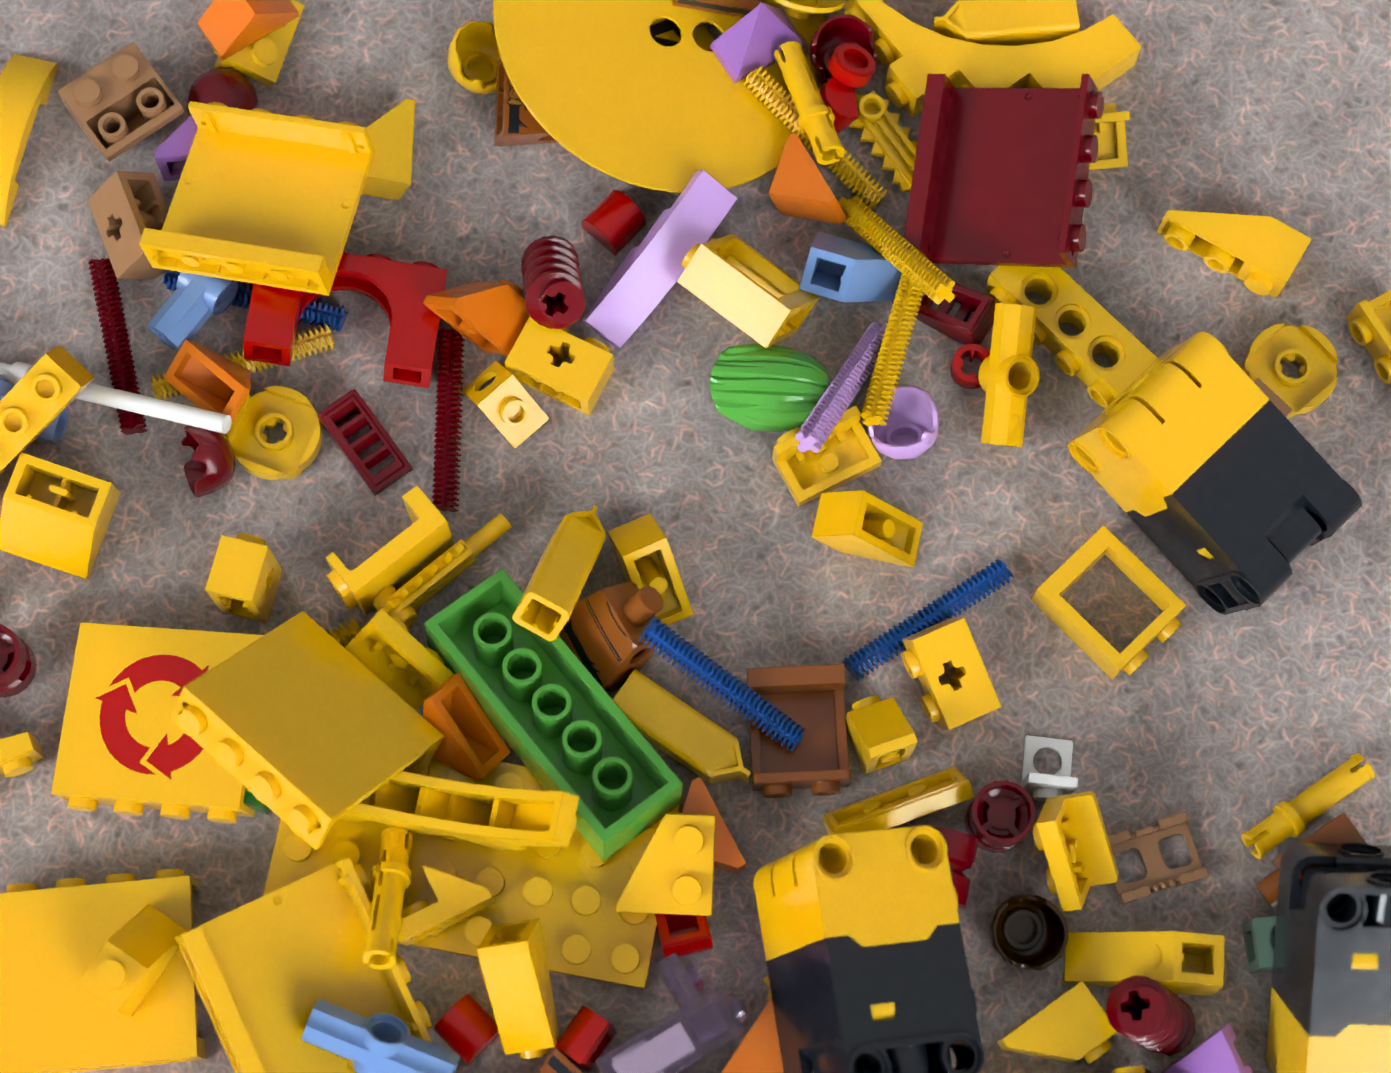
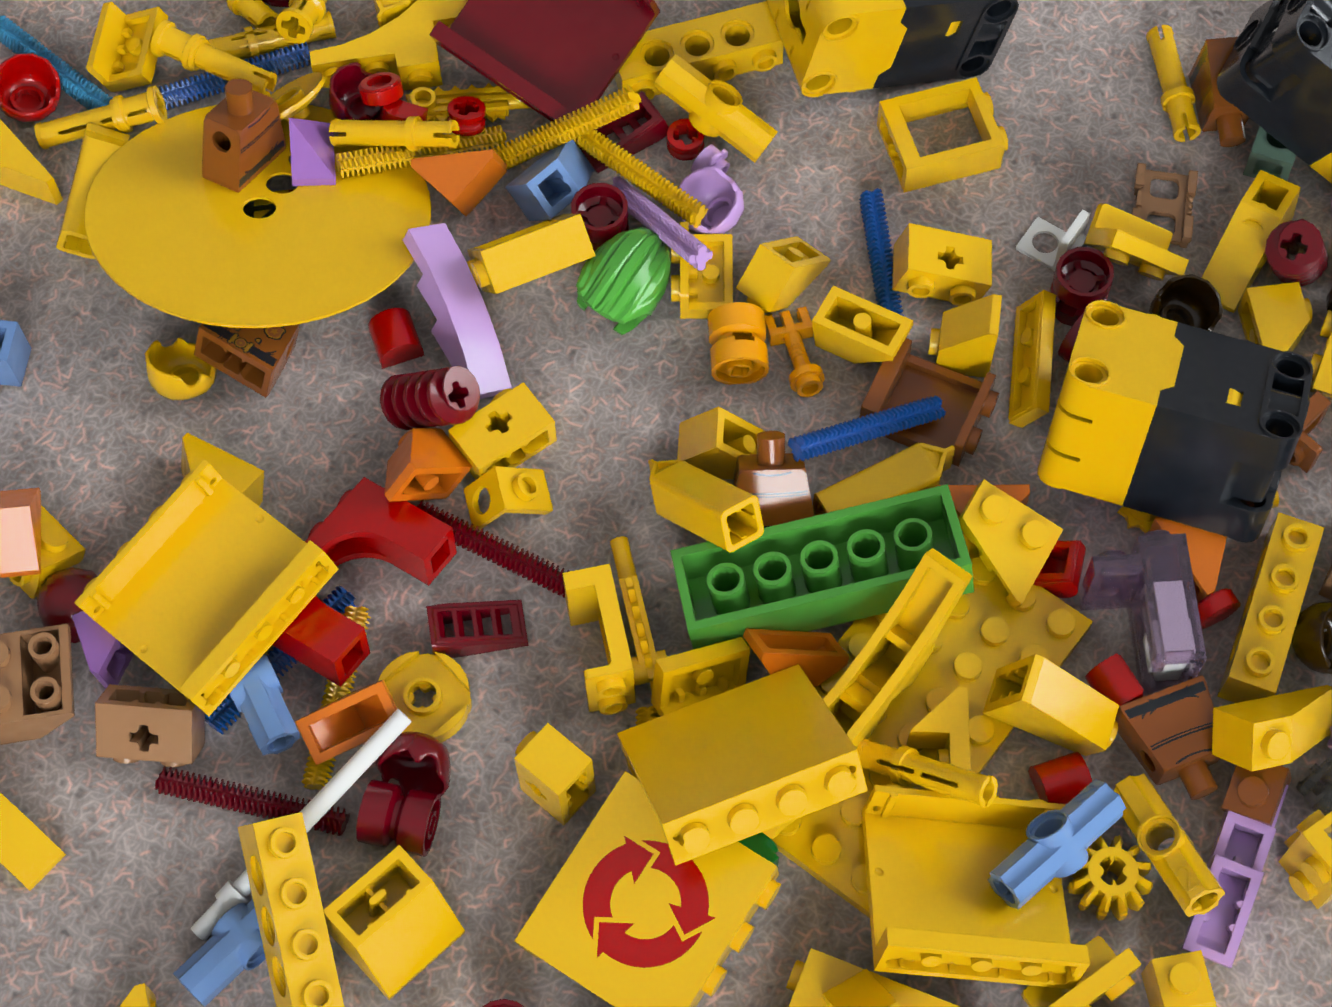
camera: 60 degrees left, 10 degrees down
(152, 477) = (392, 816): none -> dark red wheel
(764, 605) = (806, 377): none -> light orange hinge
(776, 514) = (738, 343): none -> light orange wheel
(829, 325) = (602, 211): none -> dark red wheel
(831, 626) = (858, 328): none -> yellow slope
(865, 164) = (469, 114): none -> red bush
(954, 403) = (711, 157): none -> lavender plate

